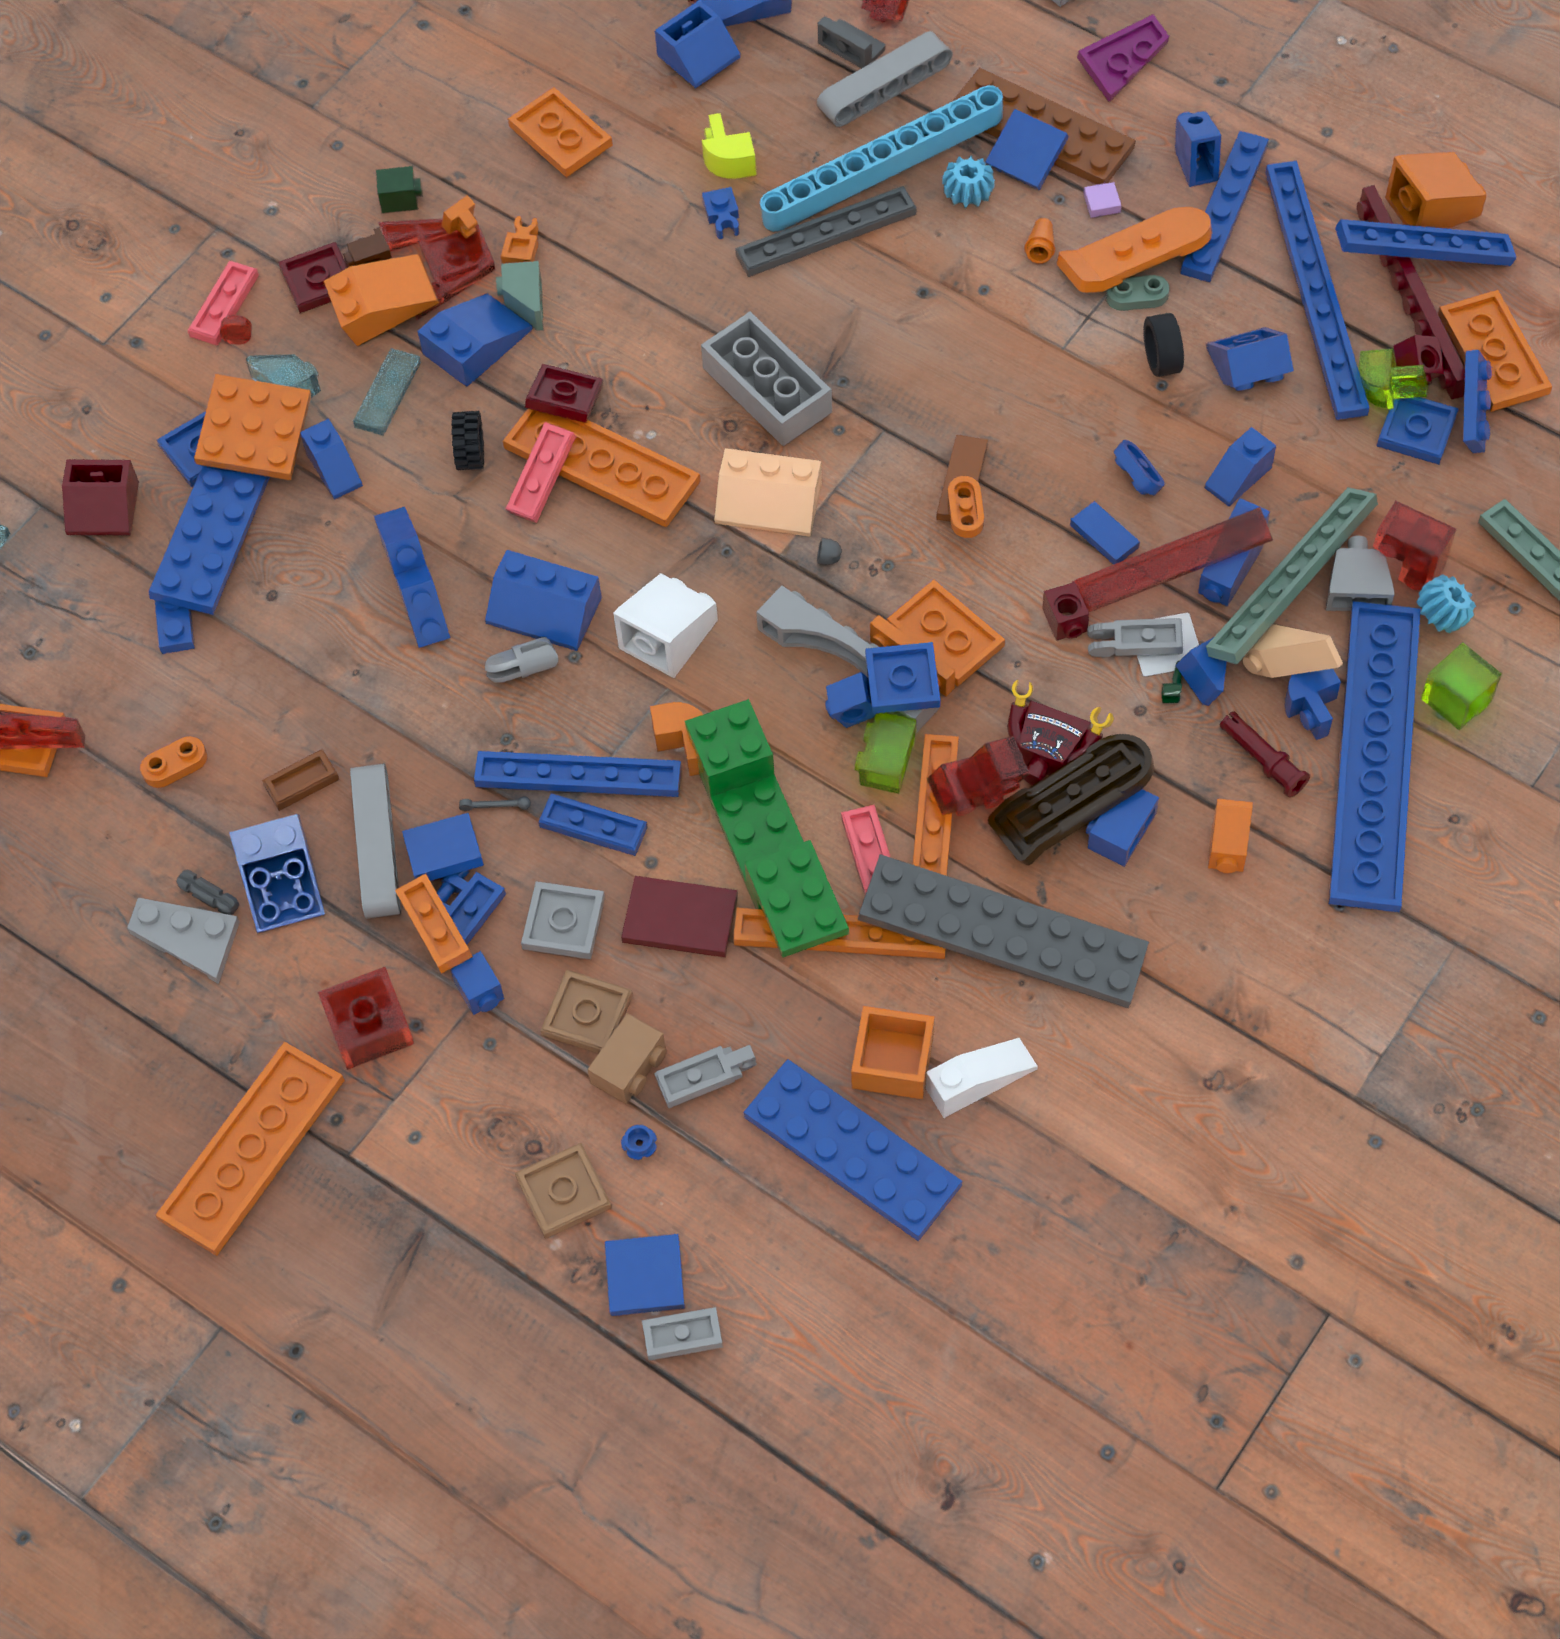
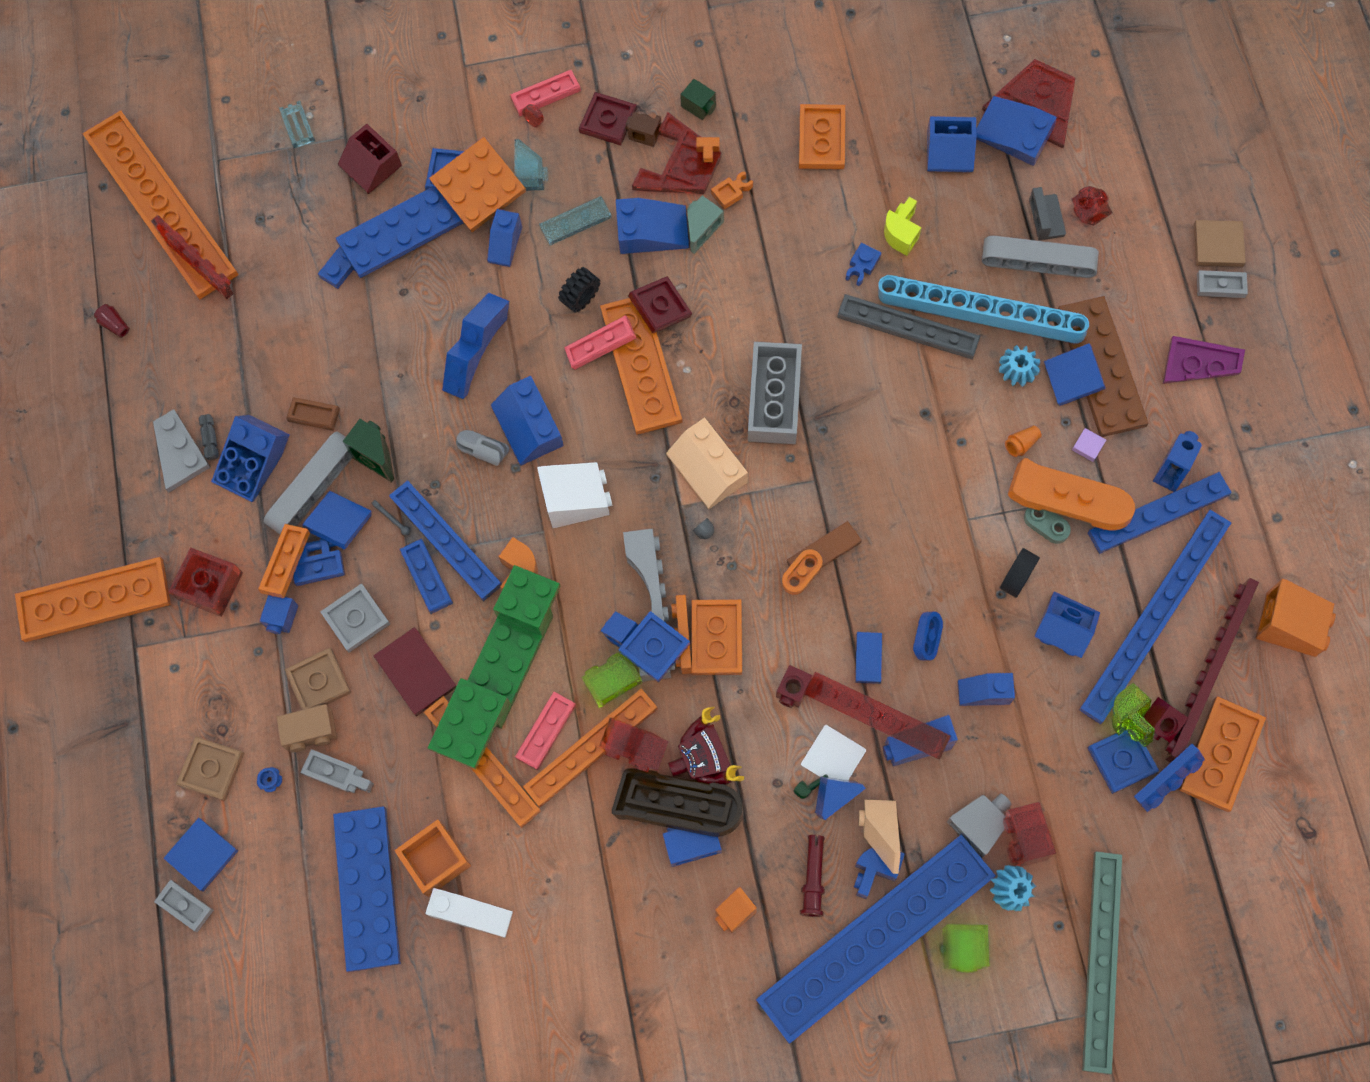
camera: 45 degrees right, 10 degrees up
(174, 762) = (262, 346): orange plate -> none
(380, 295) = (621, 159): orange slope -> none
(413, 750) = (369, 448): none -> dark green slope
(1003, 931) = (562, 845): dark grey plate -> none
(1137, 637) = (818, 741): light grey hinge -> none
(1291, 576) = (940, 786): sand green plate -> none
(1425, 242) = (1247, 649): blue plate -> none

